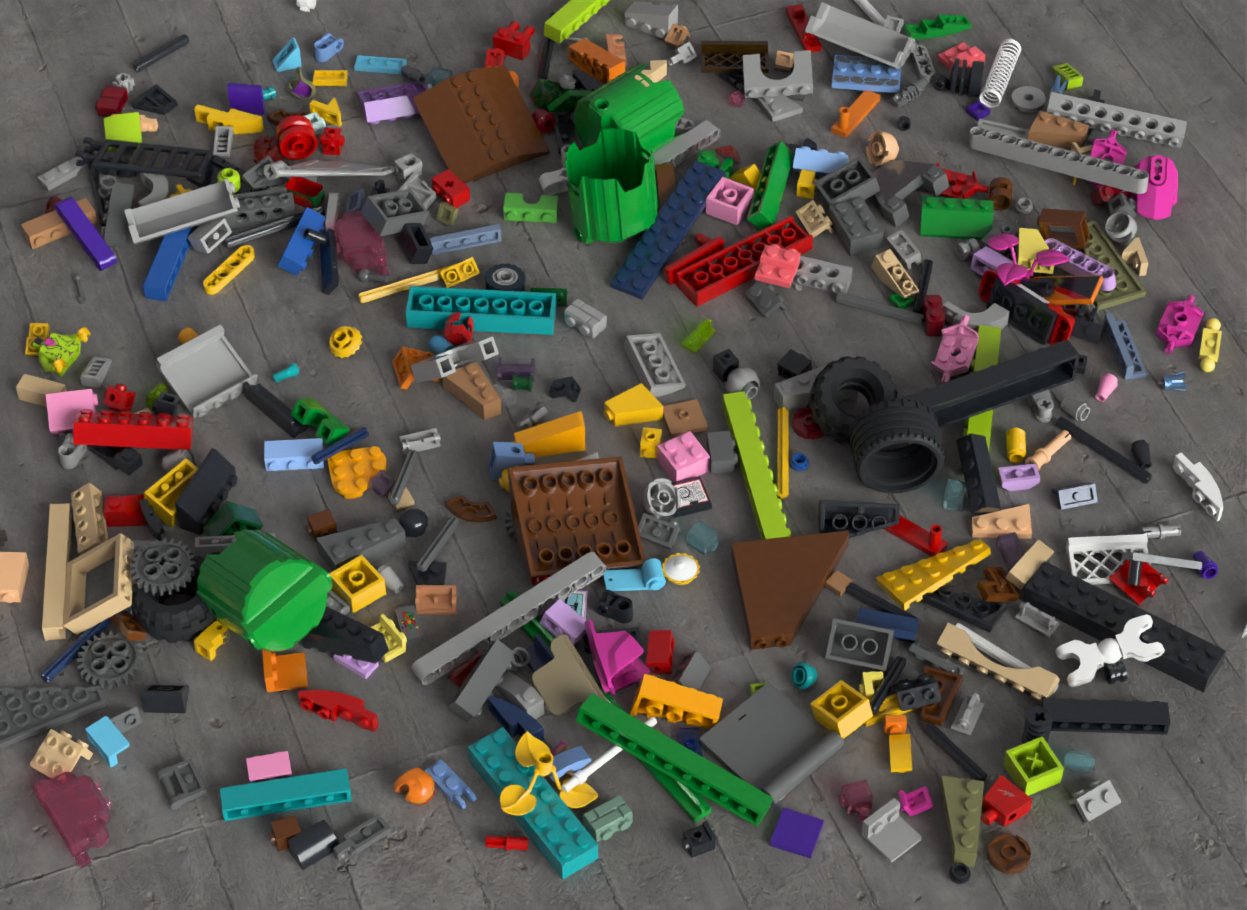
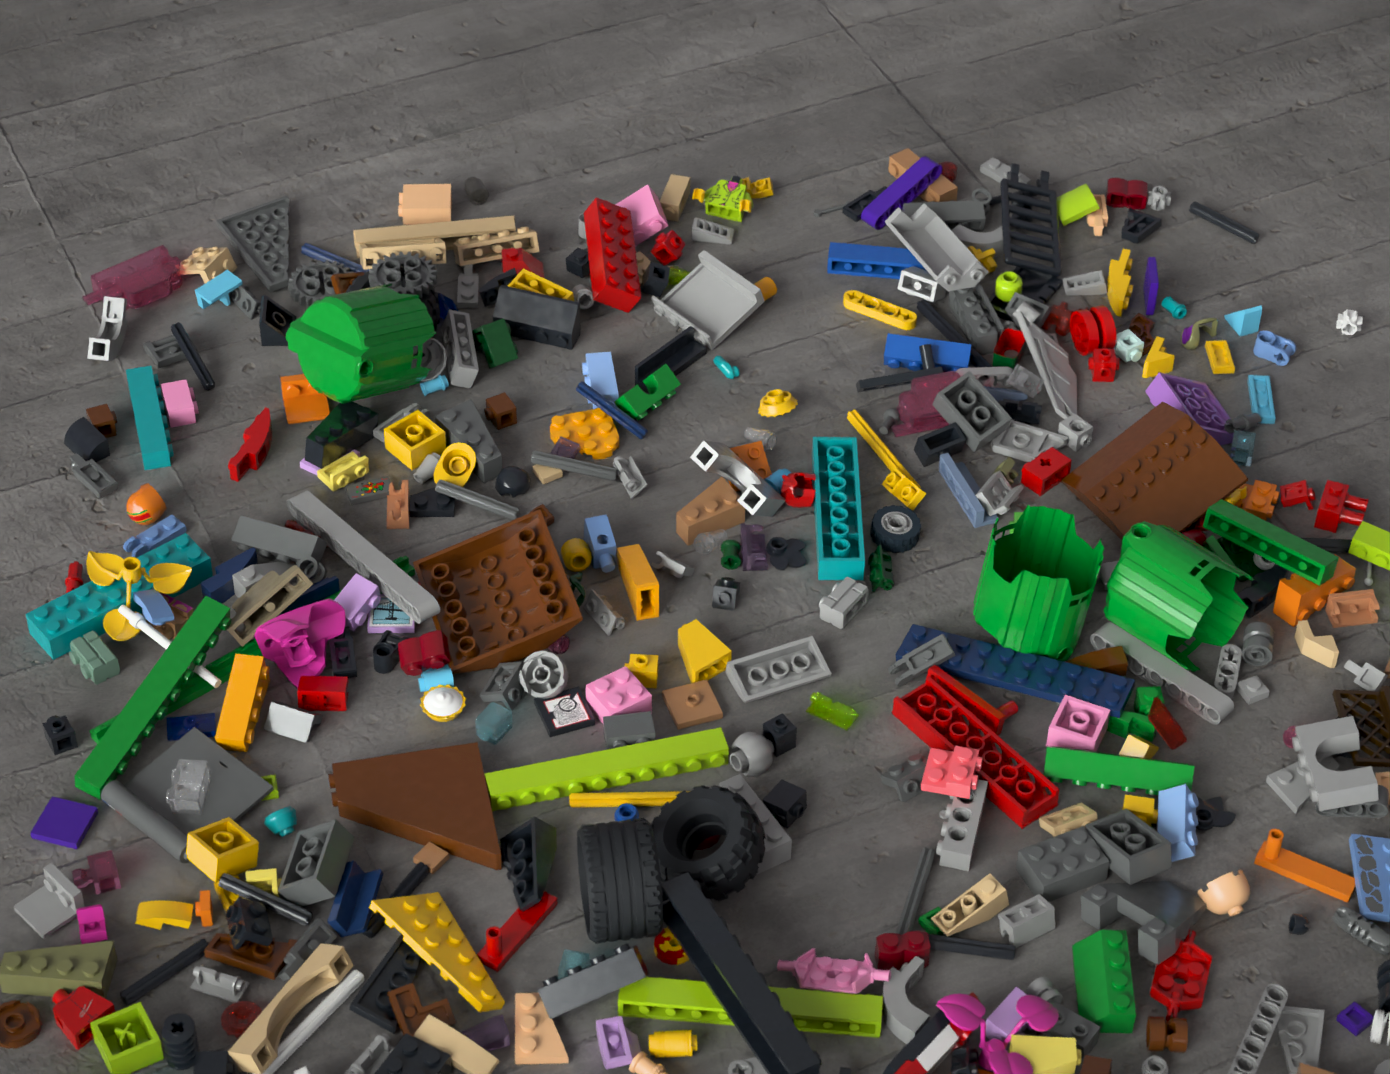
camera: 85 degrees right, 5 degrees down
(83, 263) = (855, 208): none -> black hinge
(158, 834) = (112, 330): none -> light grey arch
(205, 758) = (193, 356): none -> black axle
(347, 185) = (1018, 378): none -> clear brick
(384, 354) = (767, 437): none -> clear cone
(398, 554) = (455, 464): none -> yellow piece
(478, 214) = (998, 494): none -> light grey bracket
(522, 351) = (786, 553): none -> black plate
(568, 68) = (1270, 542): none -> green brick
(630, 576) = (424, 652): none -> dark red brick
(657, 275) = (921, 659): none -> dark grey hinge
(690, 113) = (1252, 689): none -> light grey plate
(772, 735) = (189, 786): none -> clear brick
(998, 693) = (238, 1010): none -> clear red gear

